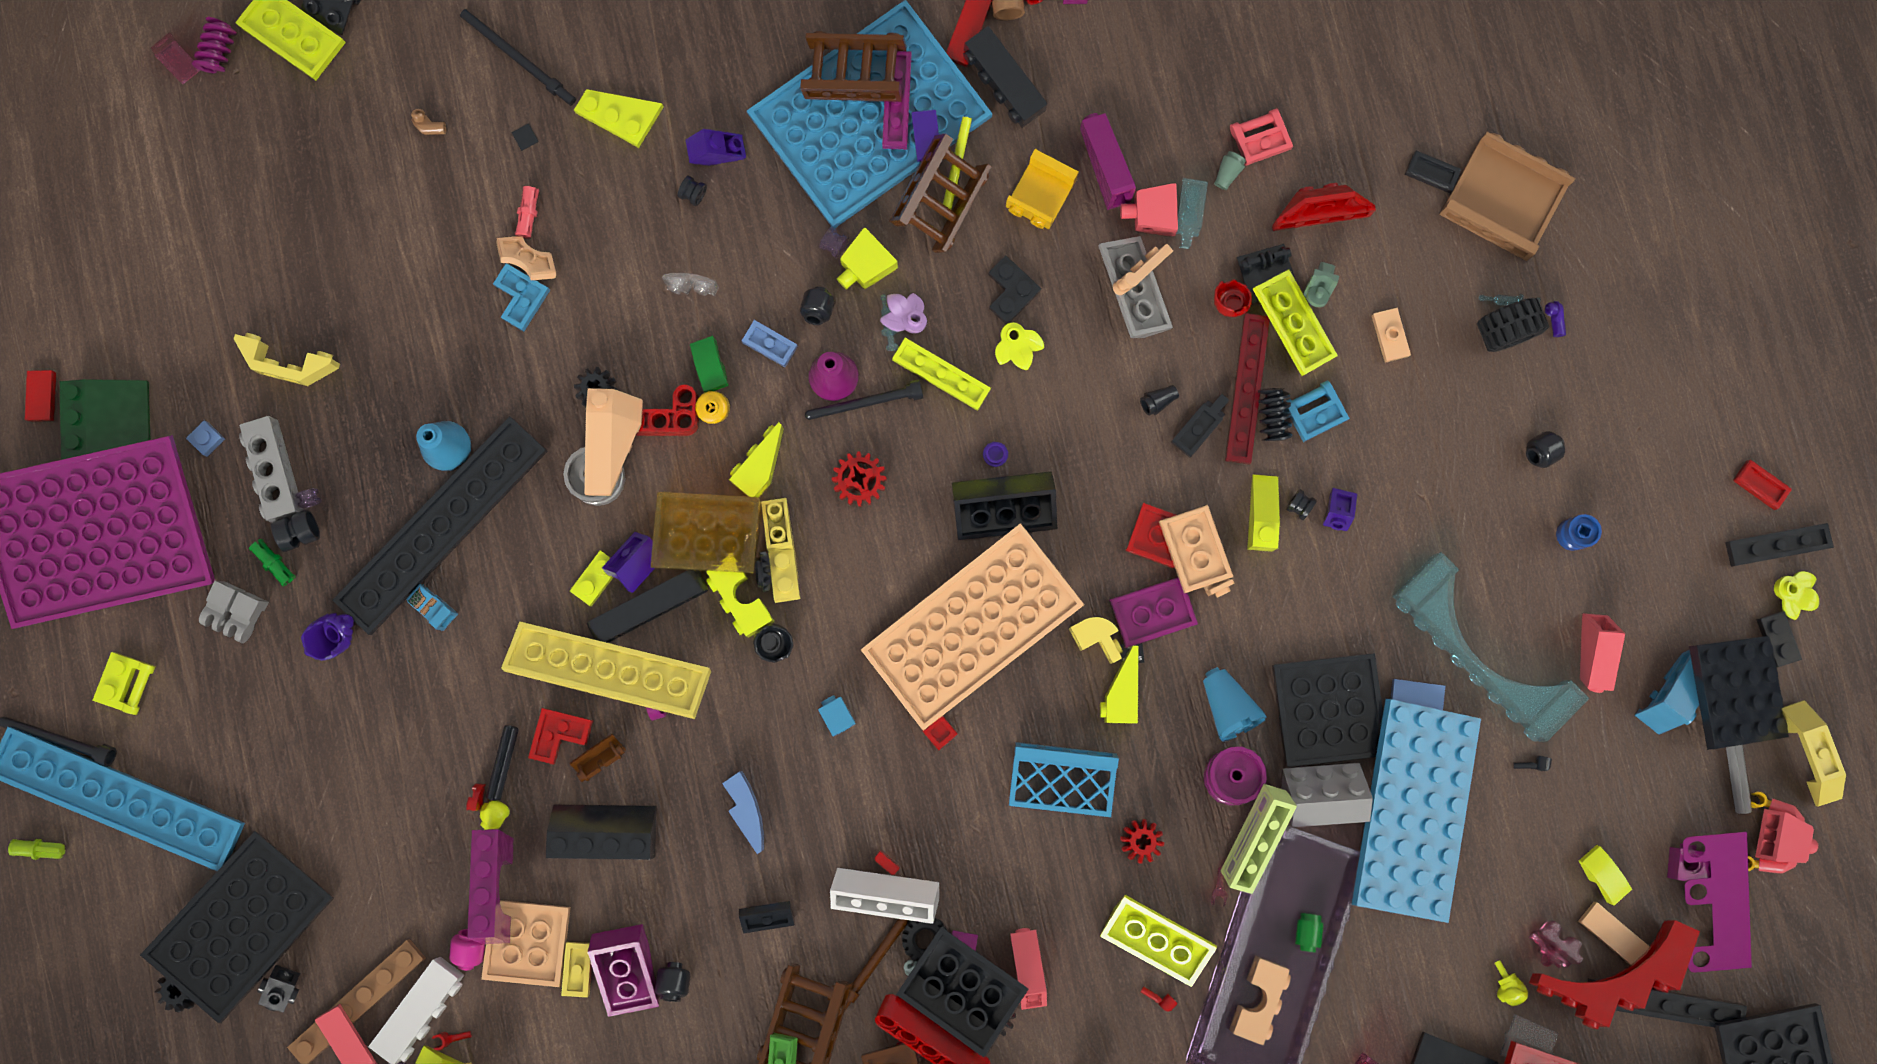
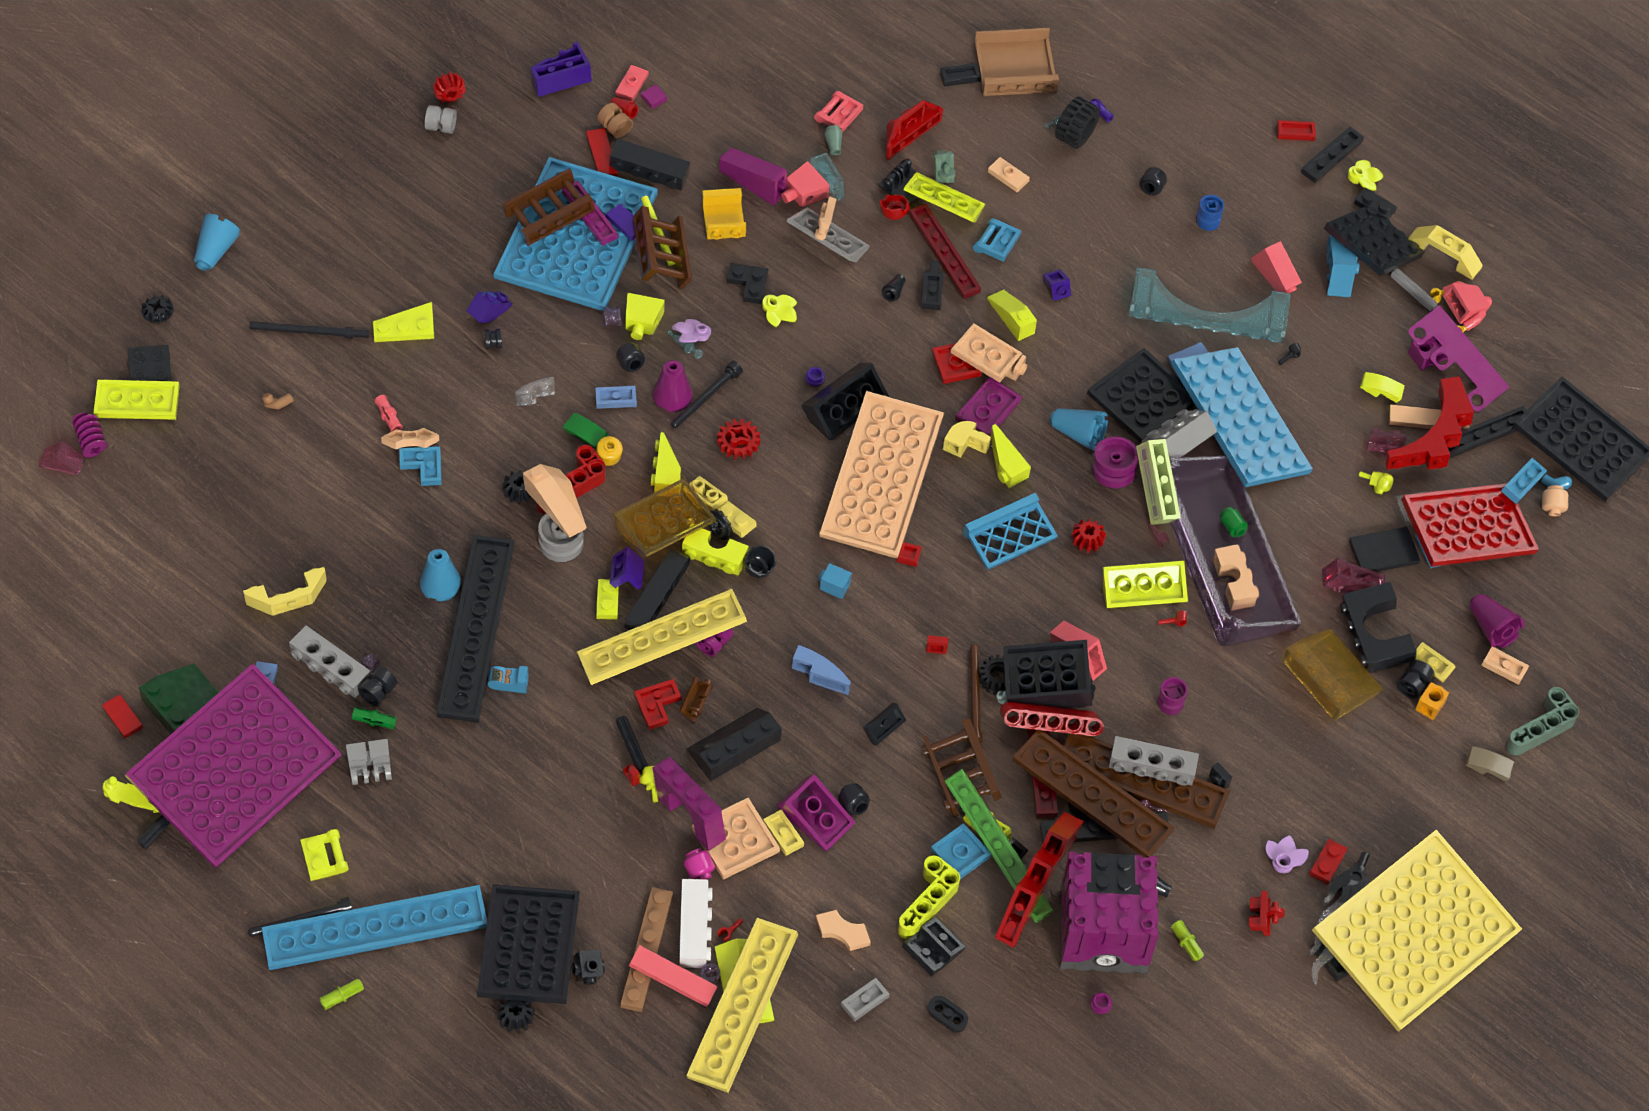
camera: 40 degrees left, 25 degrees down
(328, 636) = (452, 733): dark purple hair -> none
(525, 137) = (350, 374): black sticker -> none
(884, 895) = (951, 658): white brick -> none
(941, 374) = (743, 351): neon yellow plate -> none
(1275, 414) = (972, 252): black piece -> none
(1301, 504) = (1031, 294): black wheel -> none

